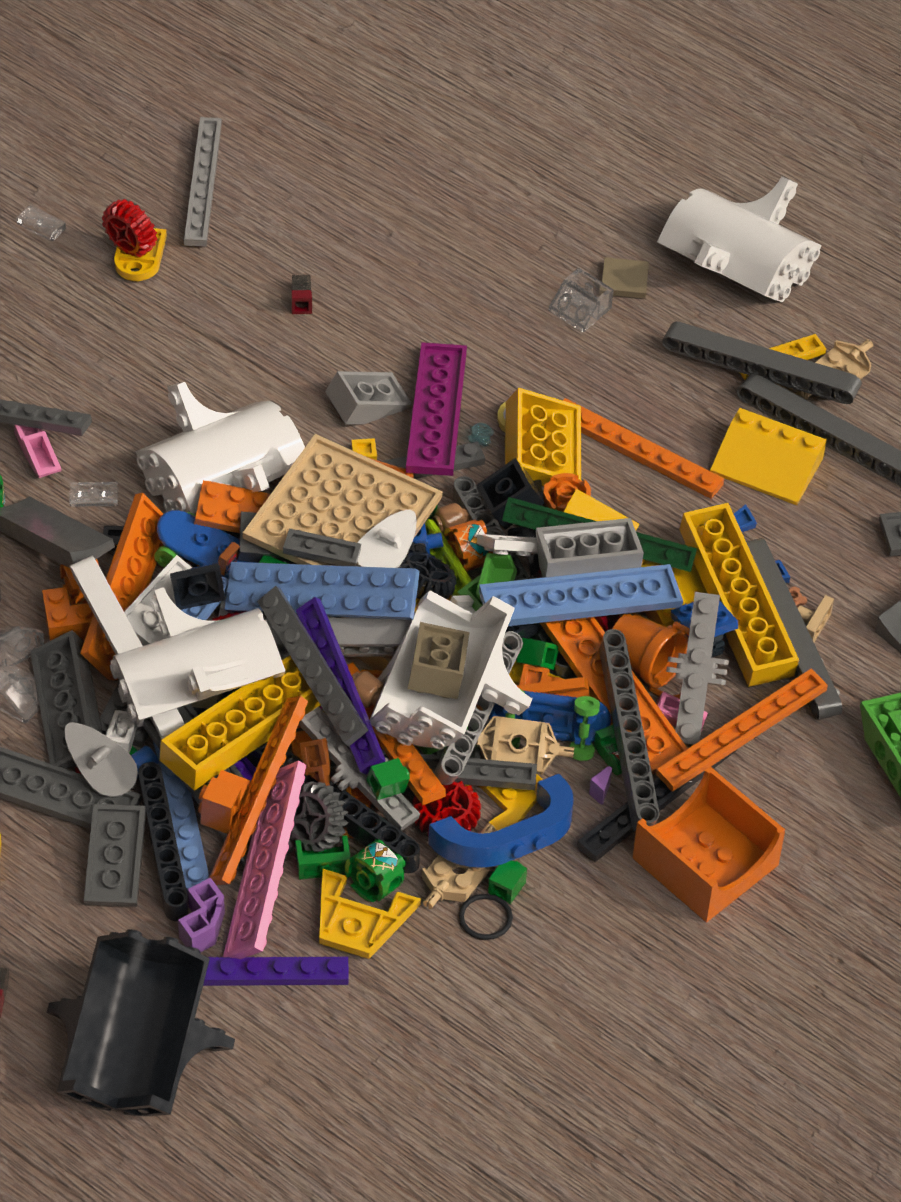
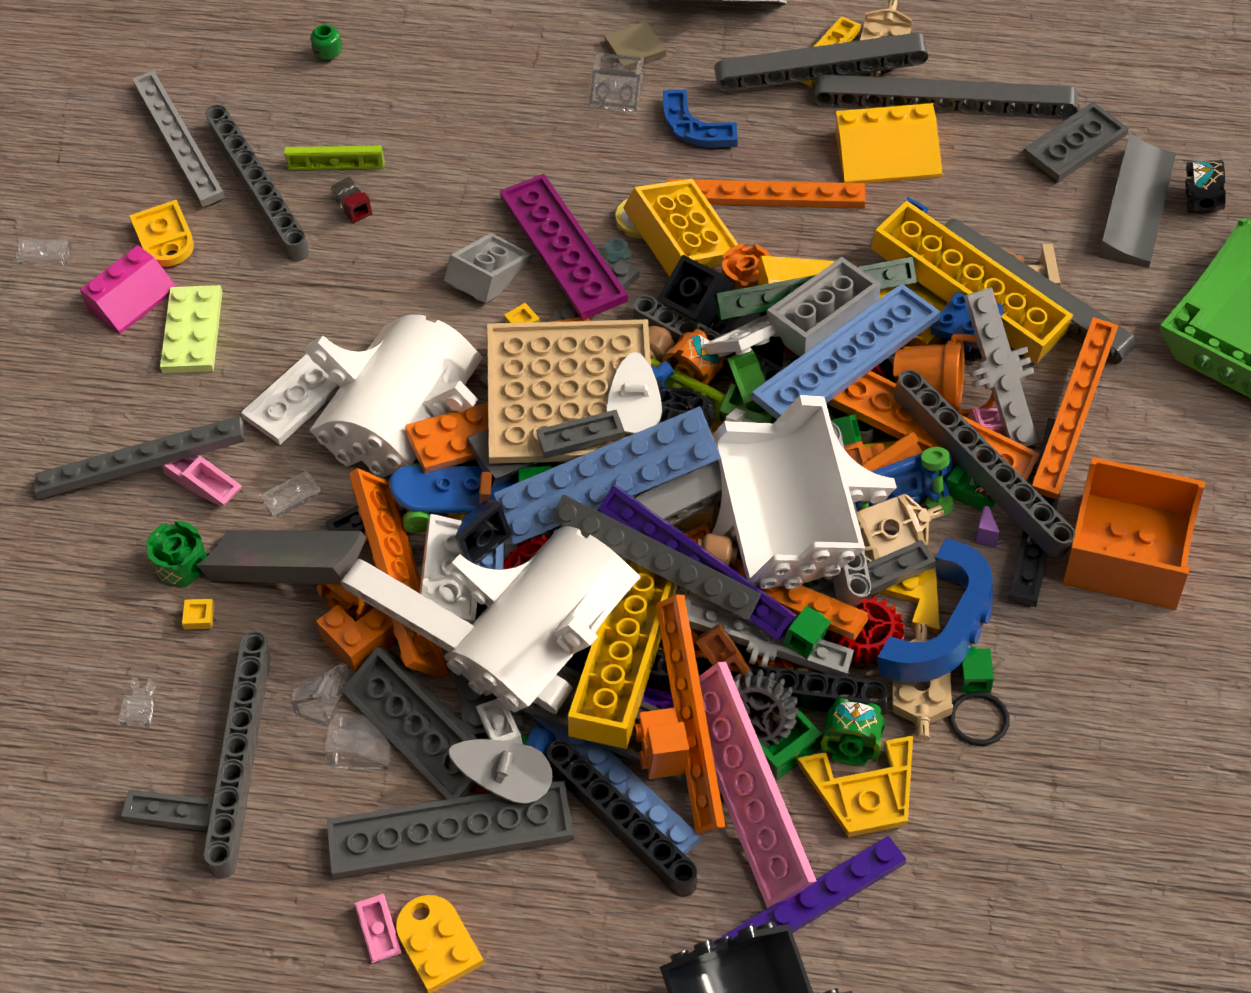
camera: 25 degrees left, 5 degrees up
(82, 282) = (127, 289): none -> slope
(109, 335) = (191, 329): none -> yellowish green plate
(115, 855) = (587, 861): dark grey plate -> none
(129, 228) = (145, 213): red gear -> none
(140, 425) = (290, 400): none -> white plate
(203, 925) = (721, 863): medium lavender brick -> none
(237, 246) = (257, 183): none -> dark grey beam
(312, 254) = (334, 157): none -> lime plate
(372, 158) = (326, 42): none -> green head
(438, 660) = (778, 487): dark tan slope -> none
(617, 370) = (691, 130): none -> blue plate

